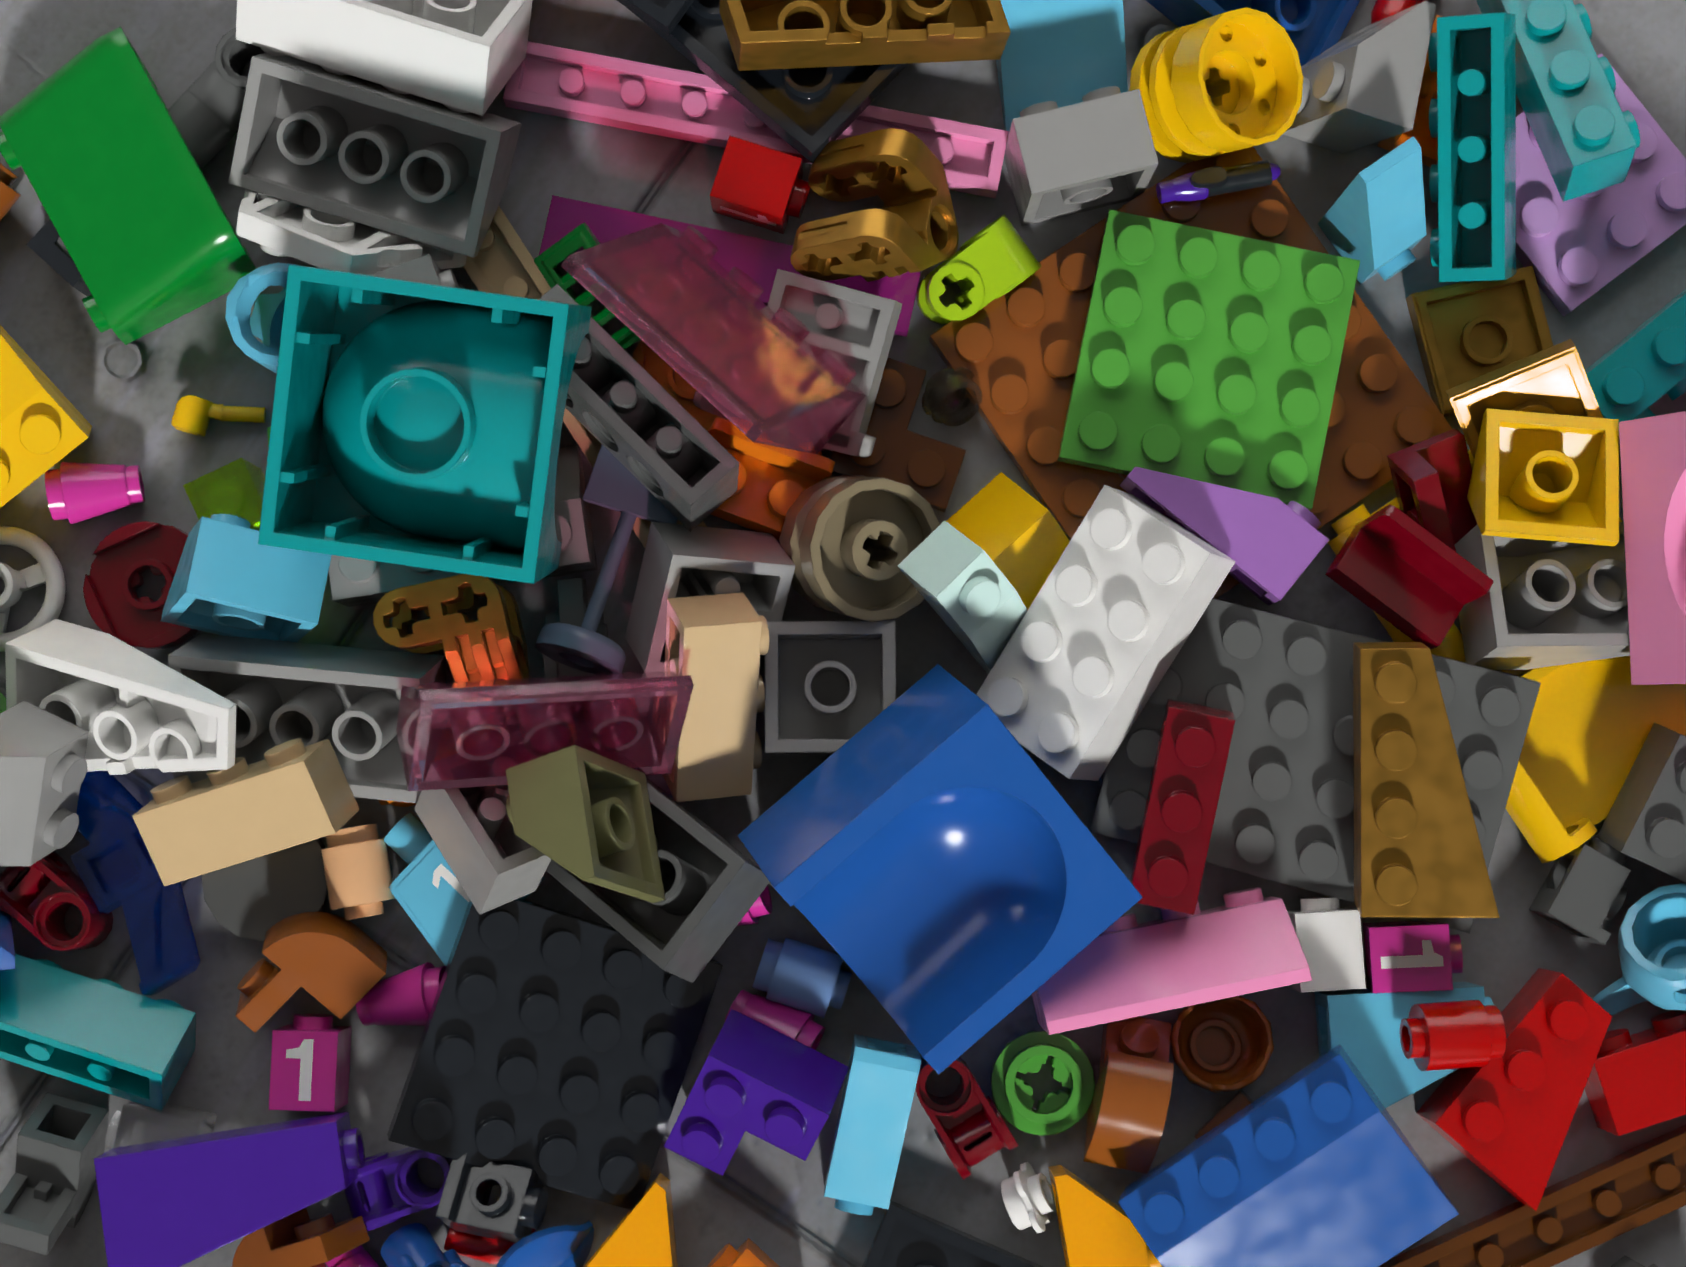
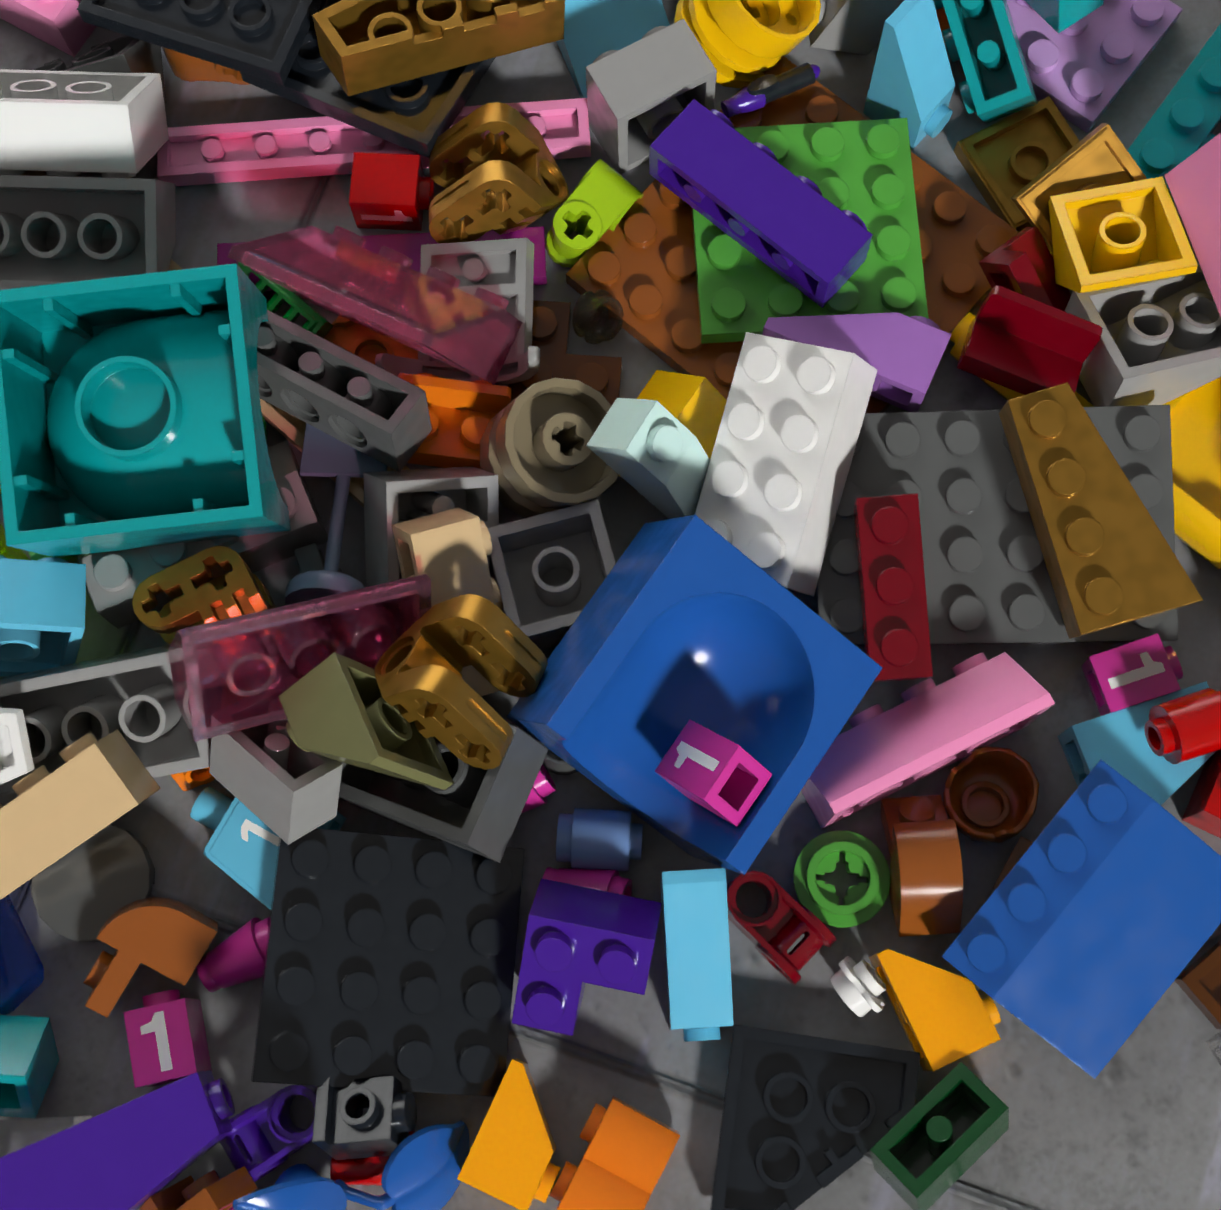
camera: 10 degrees left, 10 degrees down
(357, 871) = (172, 851): light nougat brick -> none
(663, 773) = (427, 684): none -> pearl gold piece
(935, 961) = (713, 772): none -> dark pink brick
(1163, 329) = (759, 202): none -> dark purple brick
(1330, 943) = (1067, 681): white brick -> none

